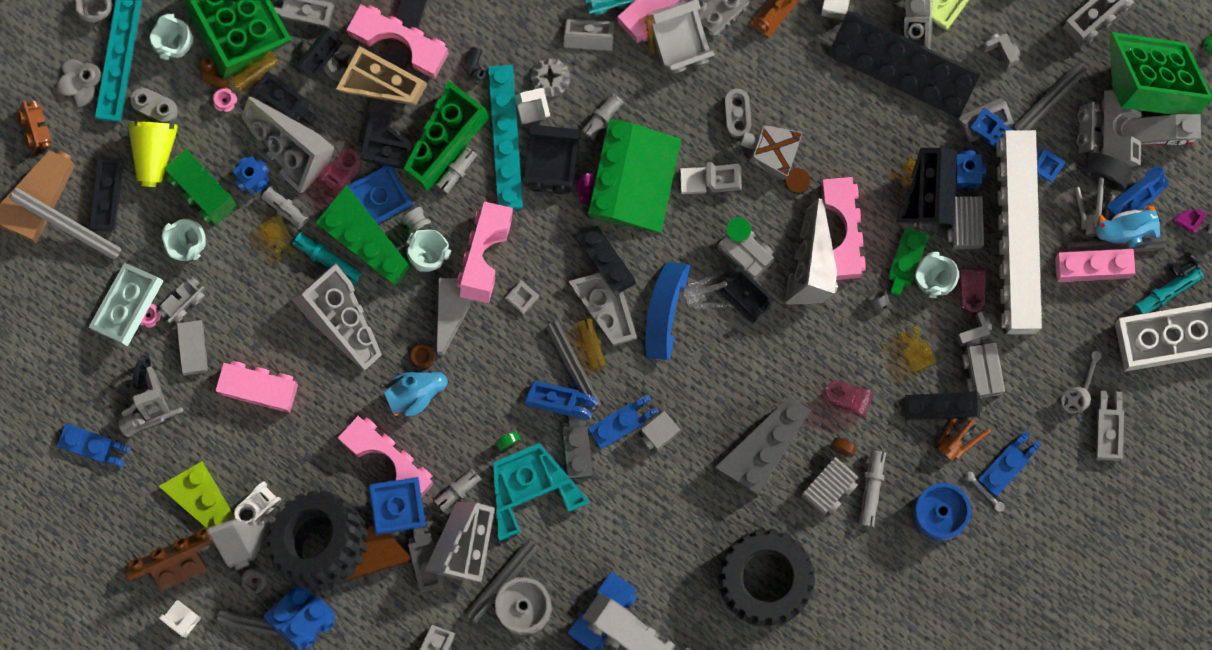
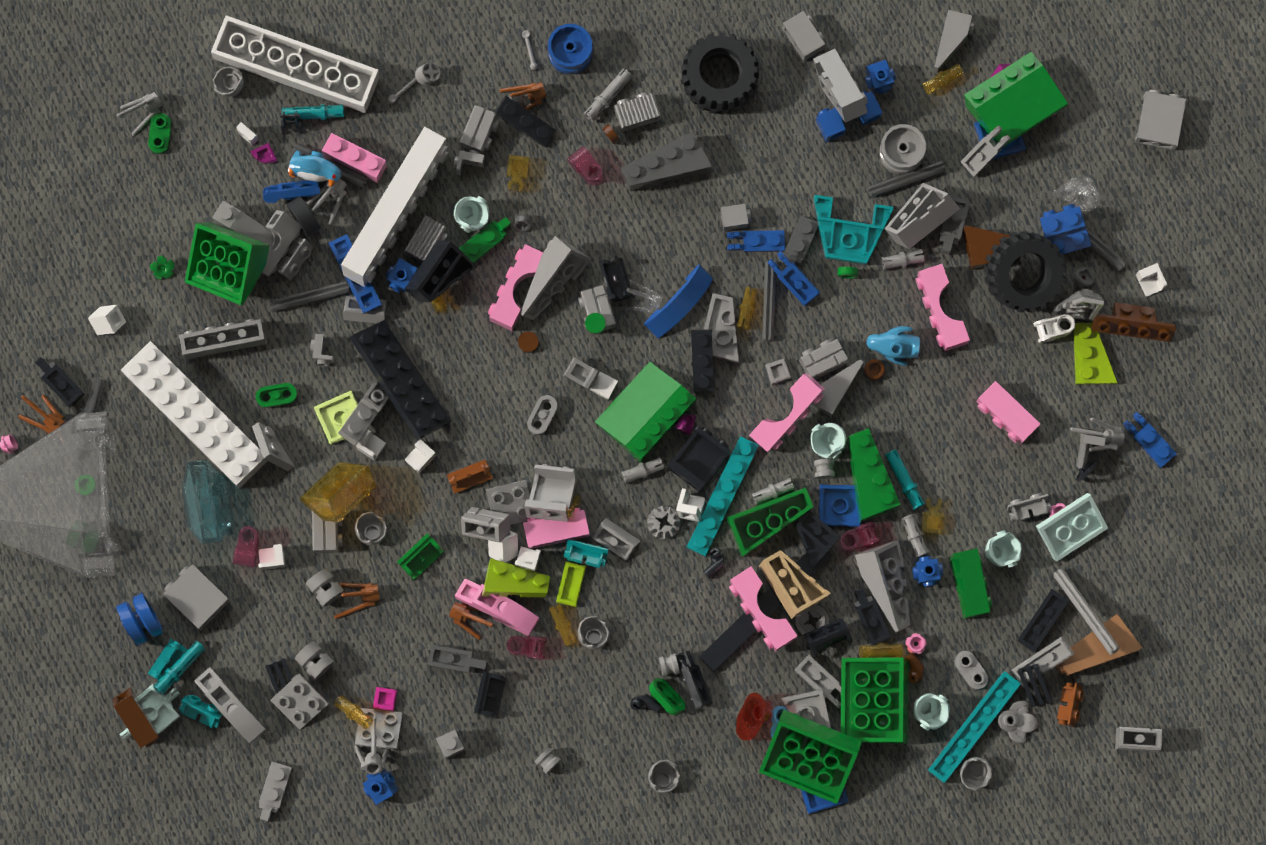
camera: 155 degrees left, 0 degrees up
(82, 119) = (1039, 700): none -> black tile
(83, 149) = (1047, 658): none -> light grey tile
(151, 149) = (991, 634): neon yellow cone -> none
(192, 347) = (1039, 470): light grey slope -> none
(336, 313) = (919, 437): light grey wedge -> none
(397, 505) = (953, 266): blue tile -> none
(481, 333) = (824, 359): none -> light grey brick
(773, 149) = (532, 372): light grey torso -> none
(972, 287) = (451, 193): clear pink piece -> none
(1007, 466) = (502, 58): blue hinge -> none
(1110, 429) = (415, 42): light grey hinge -> none

